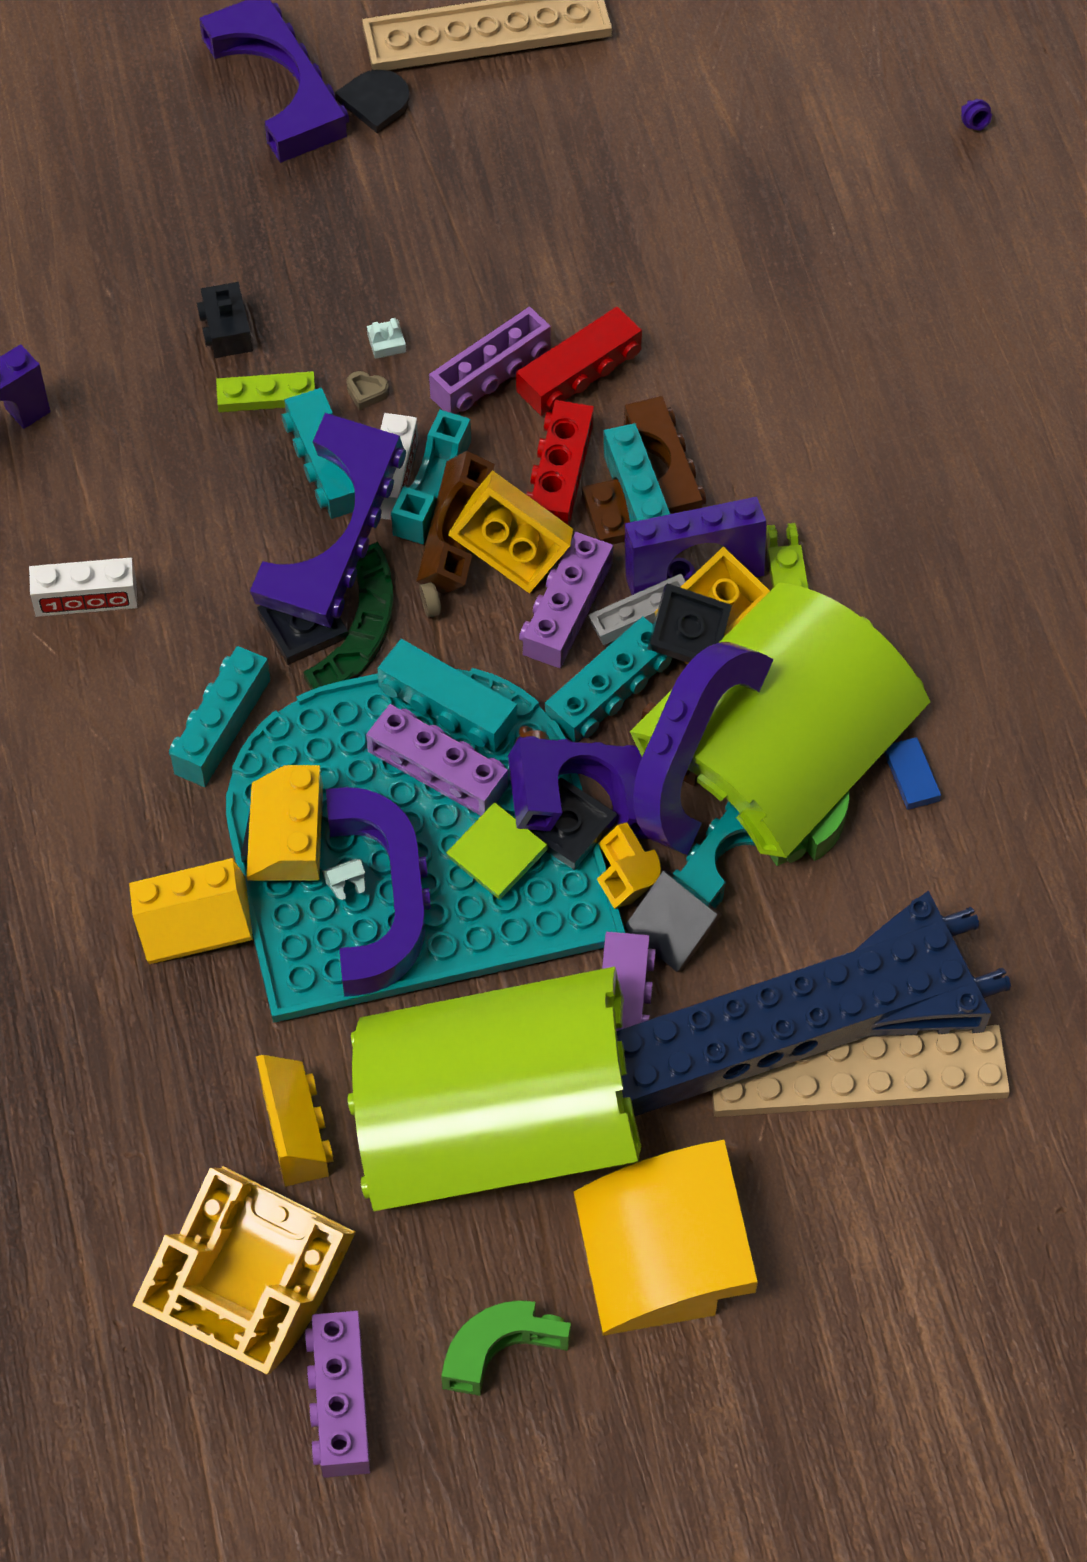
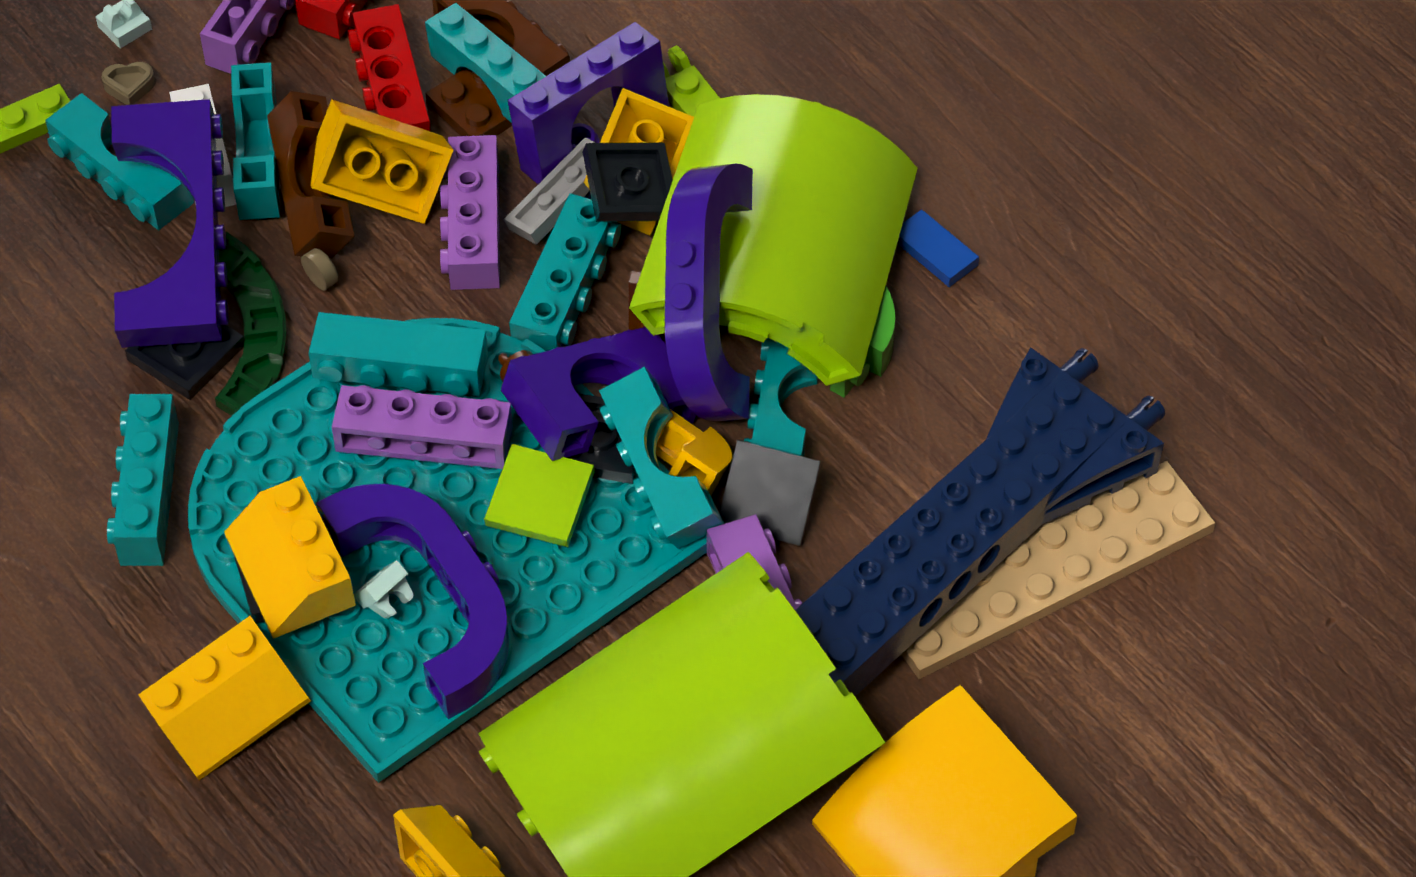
camera: 25 degrees left, 5 degrees down
(596, 818) = (639, 414): none -> teal arch

